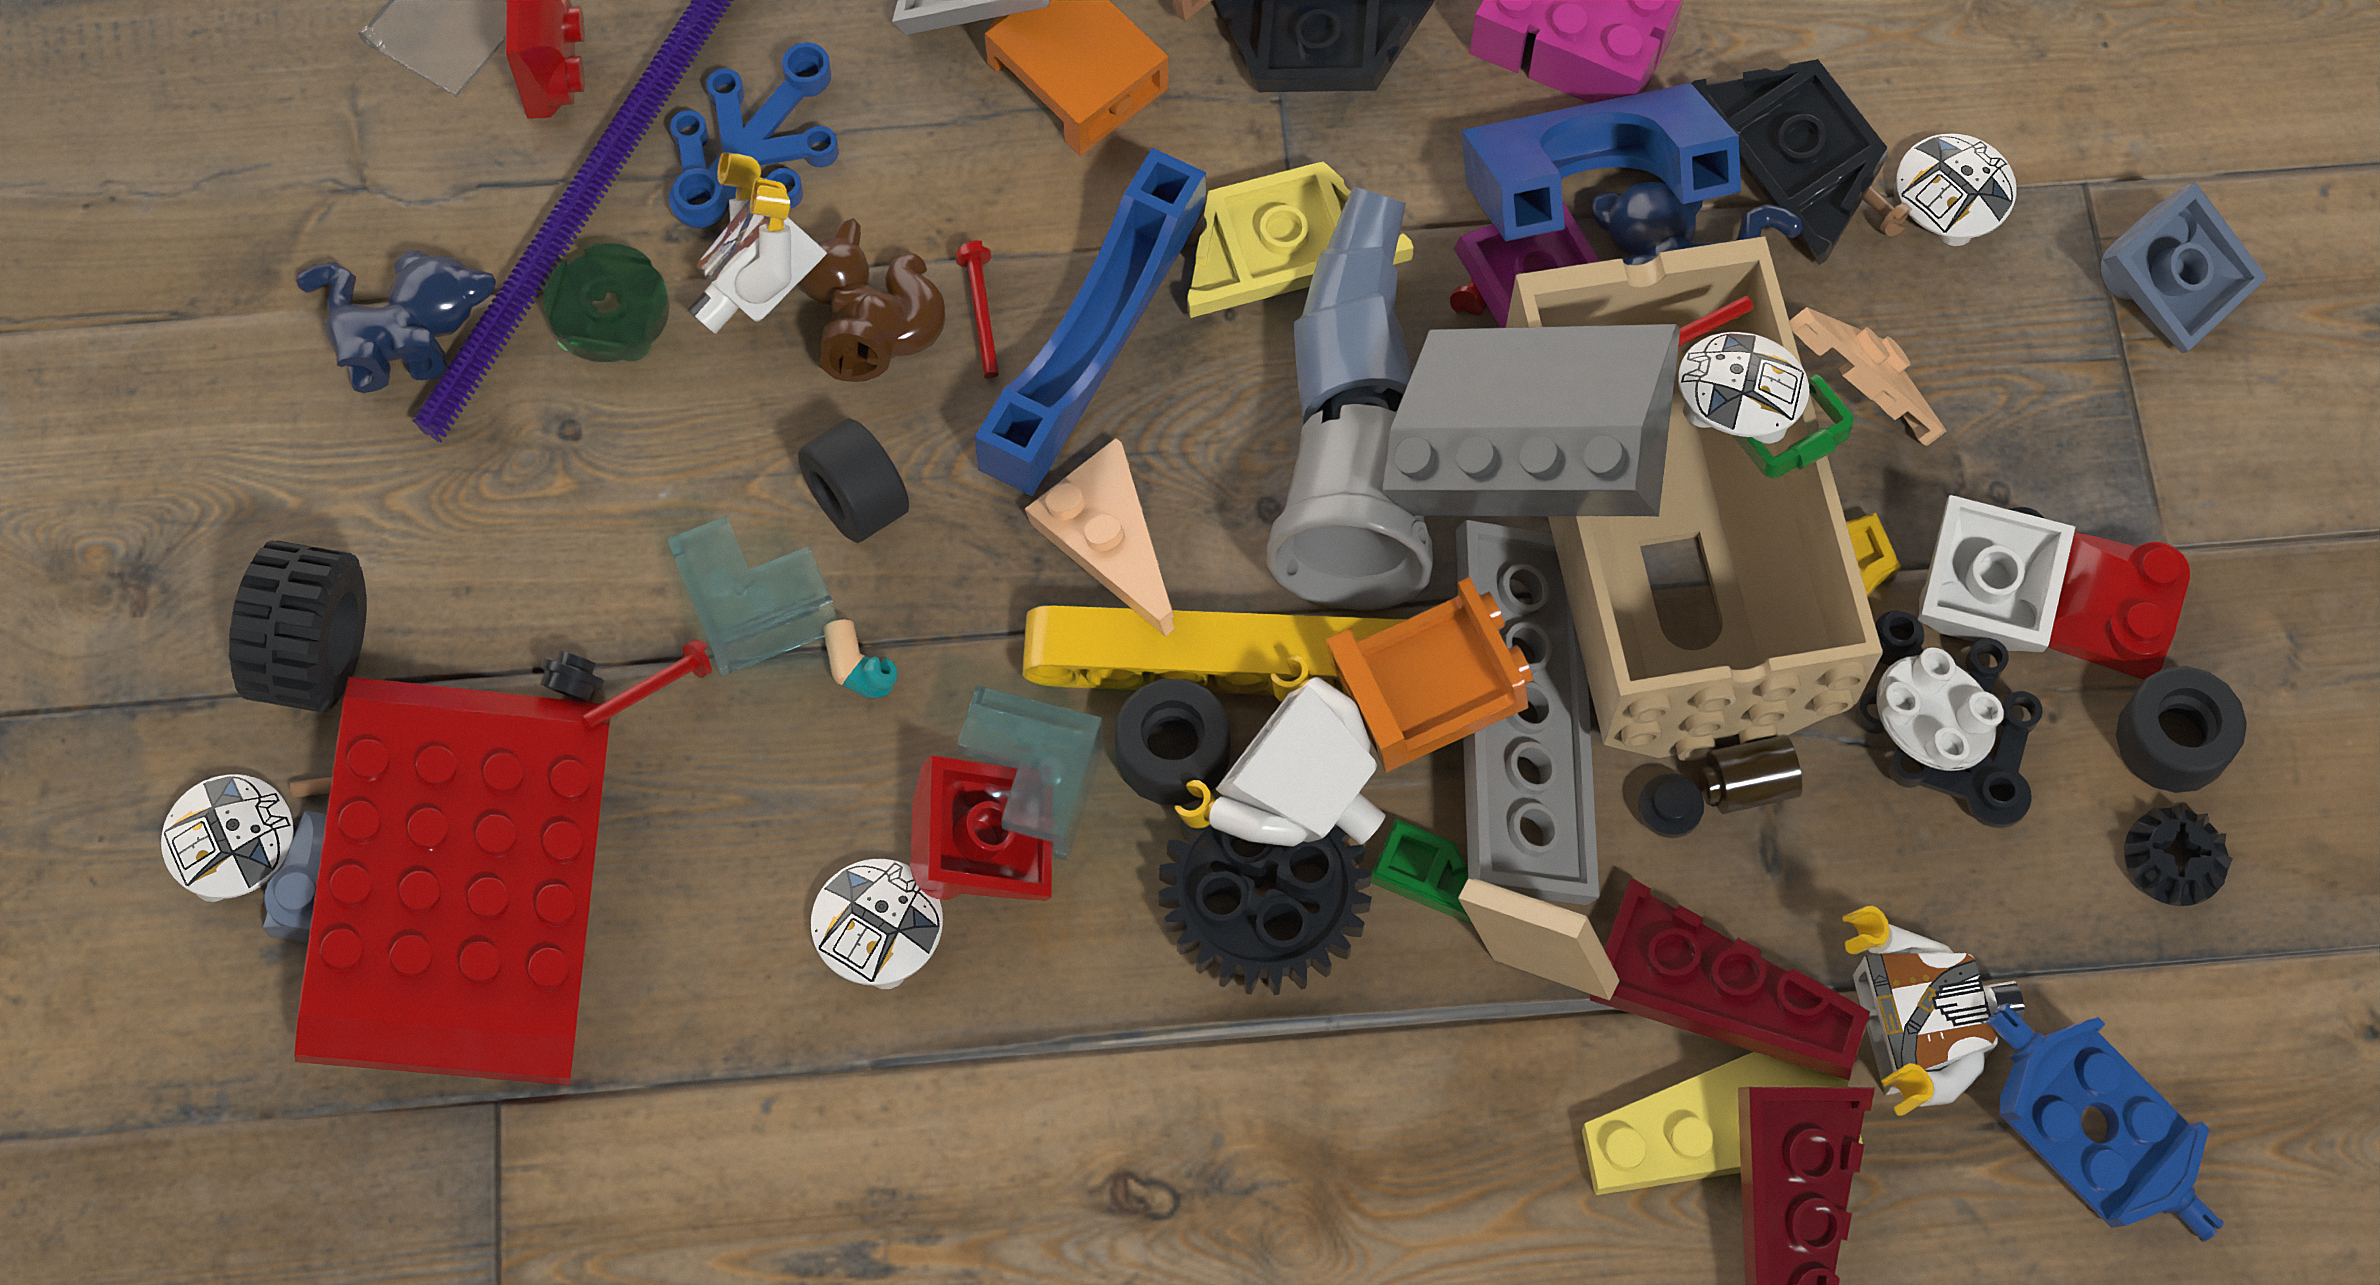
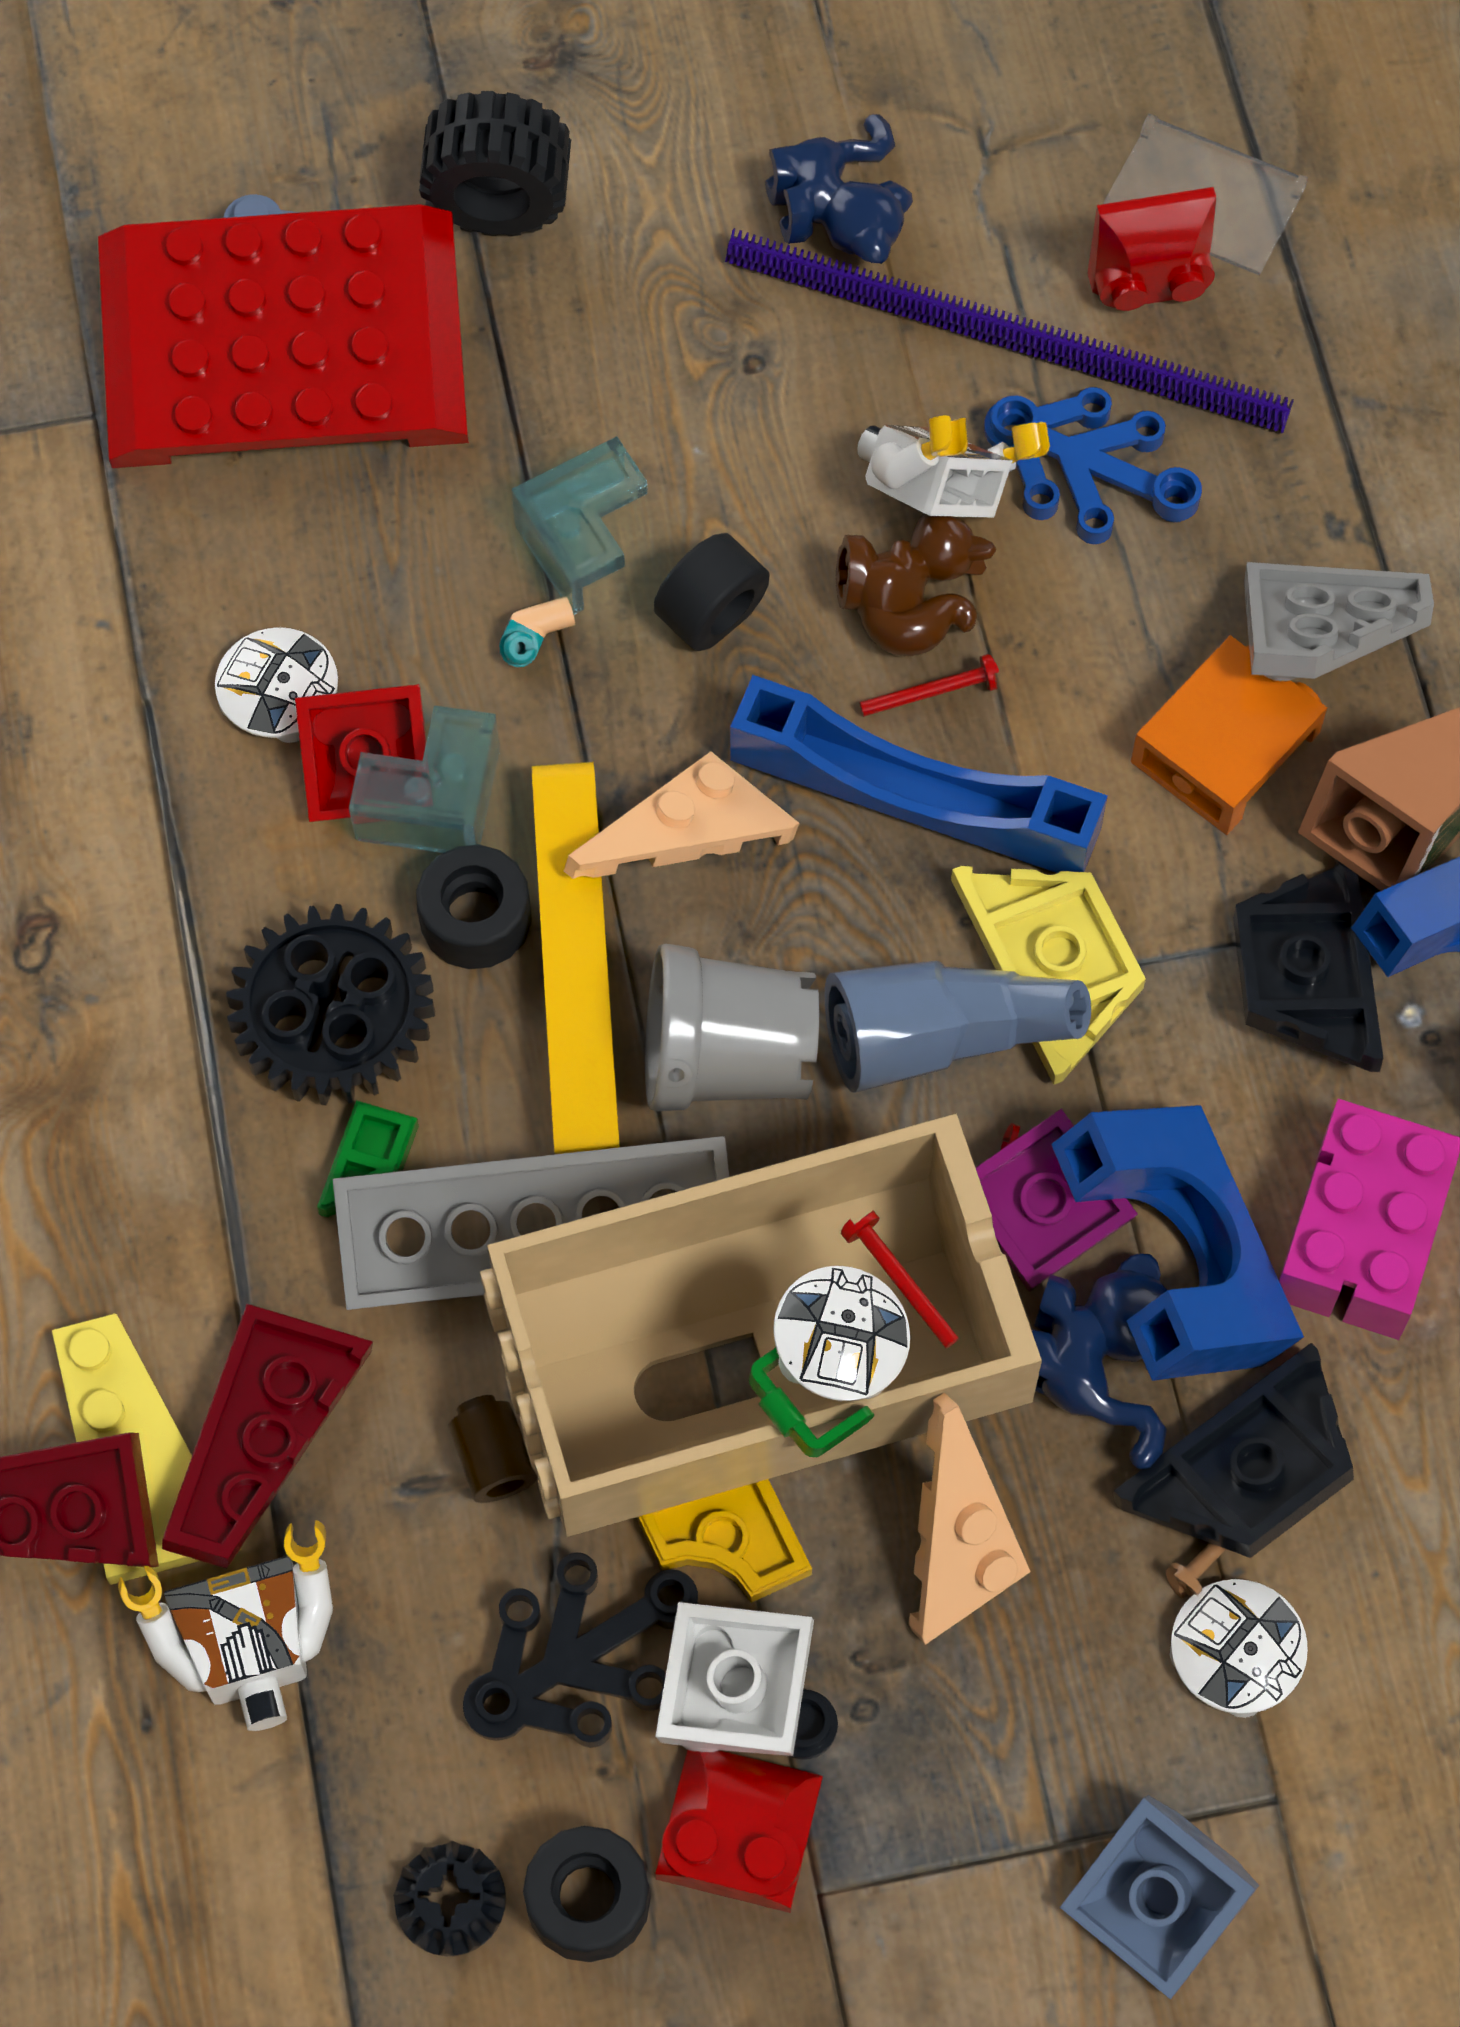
camera: 85 degrees right, 0 degrees up
(227, 836) = (316, 166): white dish -> none
(571, 676) = (489, 396): black plate -> none
(615, 334) = (883, 395): clear green plate -> none
(694, 660) = (473, 448): red piece -> none
(1297, 771) = (427, 996): white torso -> none
(1432, 676) = (535, 1104): orange panel -> none
(1535, 422) = (777, 1135): slope -> none
(1539, 938) = (274, 1234): tan tile -> none
(1671, 805) = (454, 1376): black plate -> none
(1937, 711) = (571, 1625): white dish -> none
(2148, 1146) = (88, 1835): blue plate -> none

